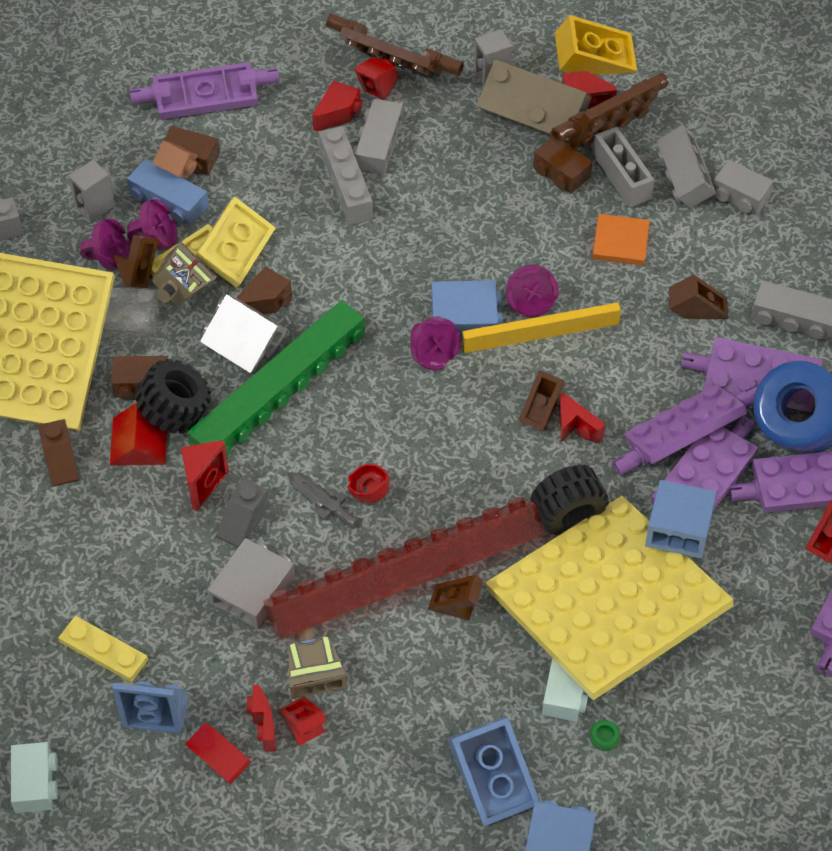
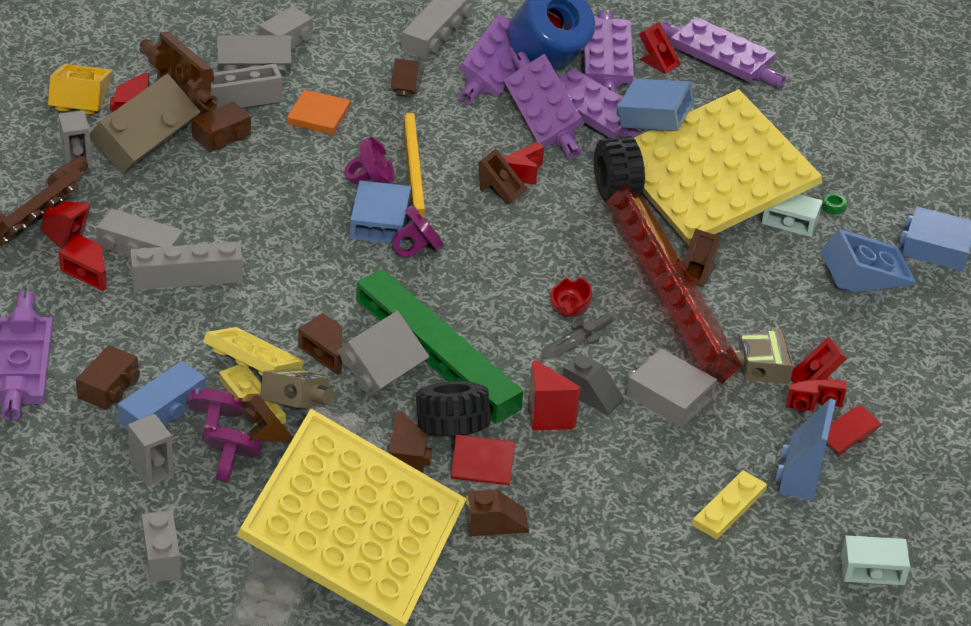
camera: 85 degrees left, 15 degrees down
(175, 159) = (132, 375): nougat brick -> none

